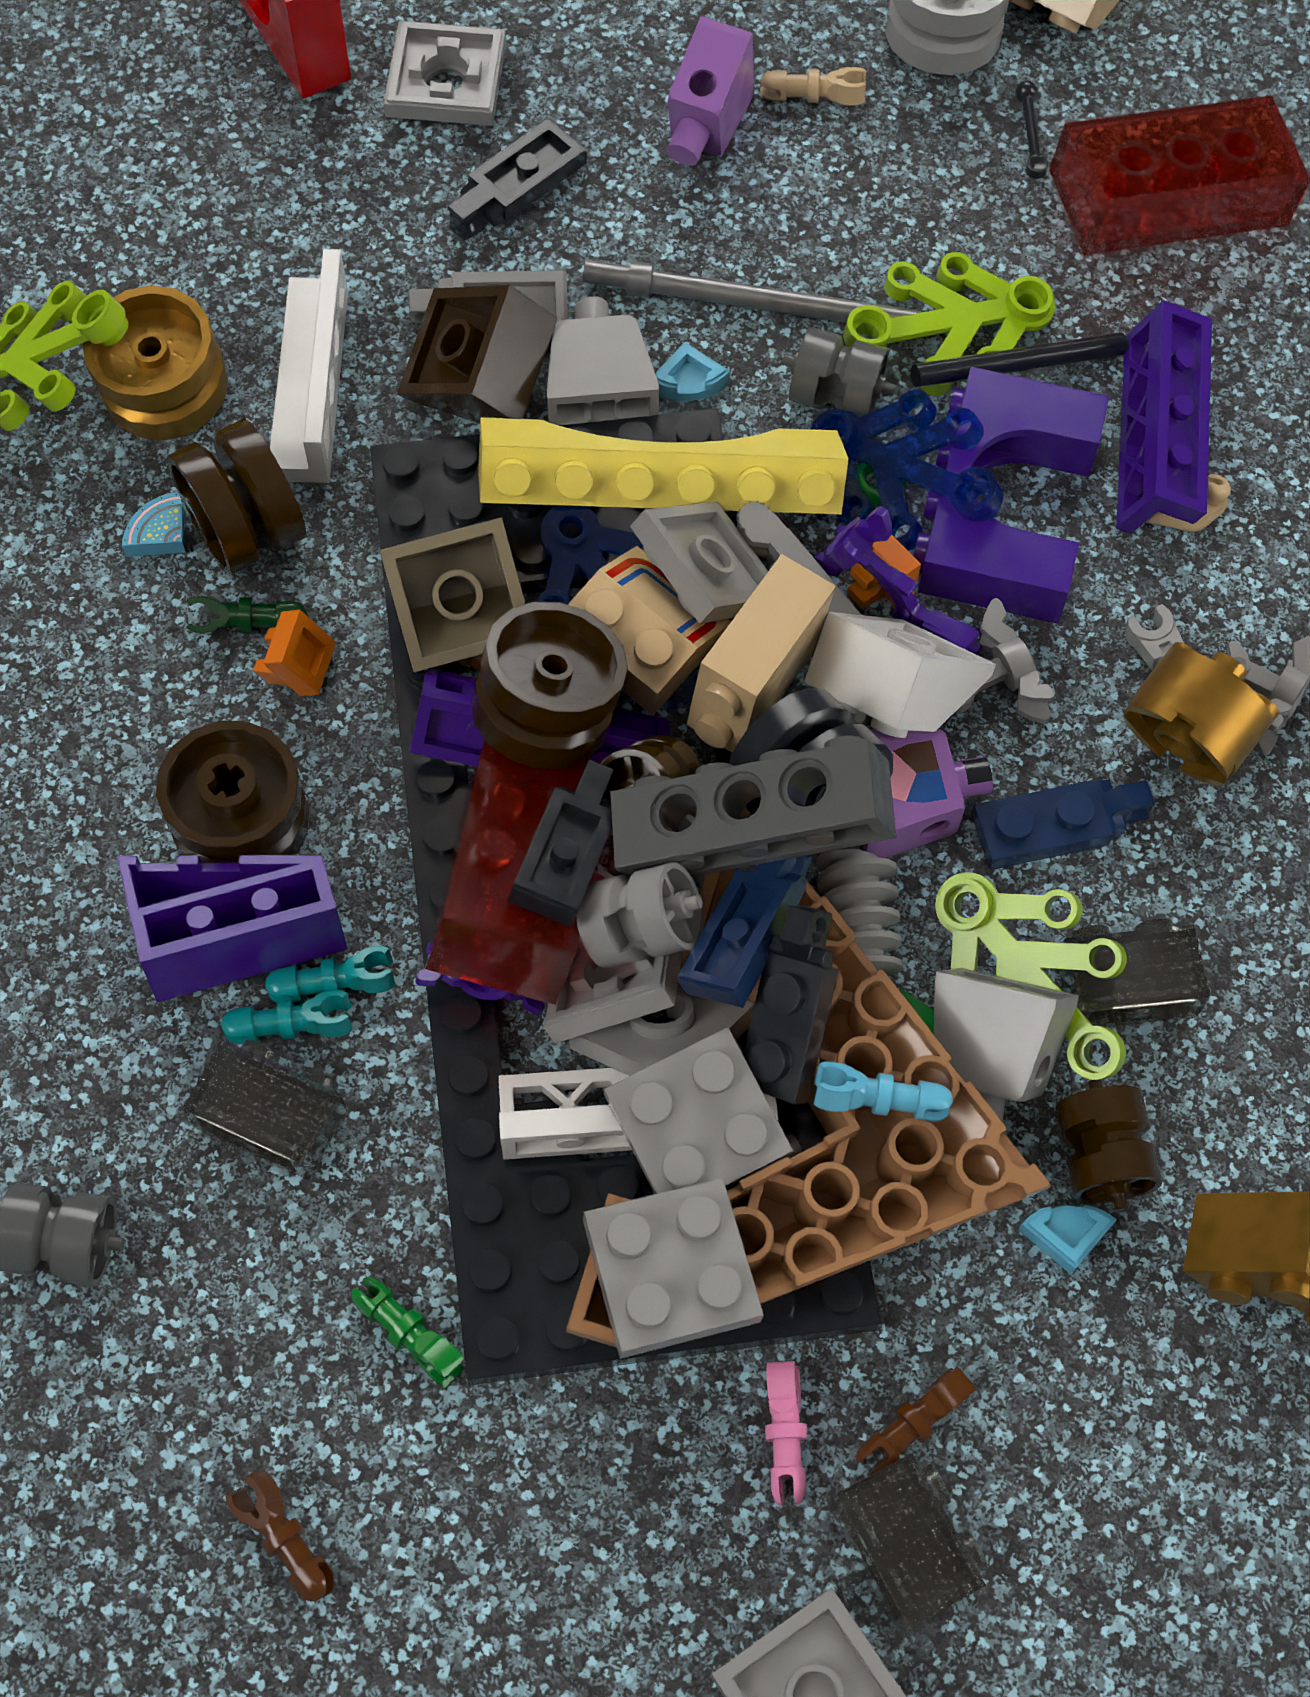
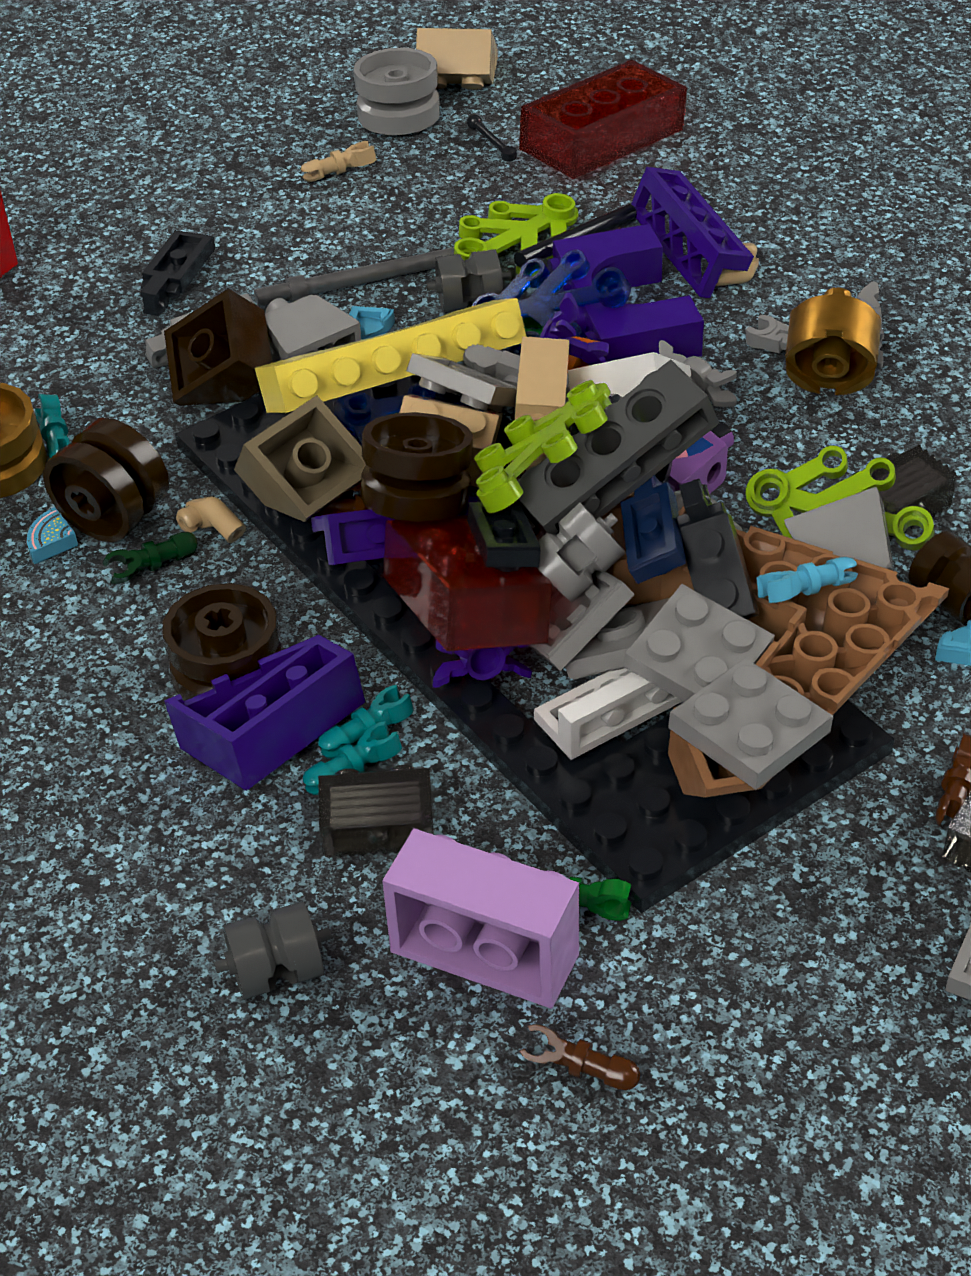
camera: 25 degrees left, 20 degrees down
(247, 366) = (52, 426): none -> teal piece
(274, 1321) = (482, 917): none -> lavender brick
(296, 654) = (203, 558): orange tile -> none
(310, 372) = (93, 390): white fence -> none
(343, 590) = (208, 513): none -> tan arm
(432, 48) = (97, 229): light grey piece -> none
(710, 91) = (277, 191): medium lavender torso -> none
(760, 724) = (530, 439): none -> lime plant
(786, 1430) = (880, 826): bright pink piece -> none
(1058, 820) = (787, 440): dark blue hinge -> none

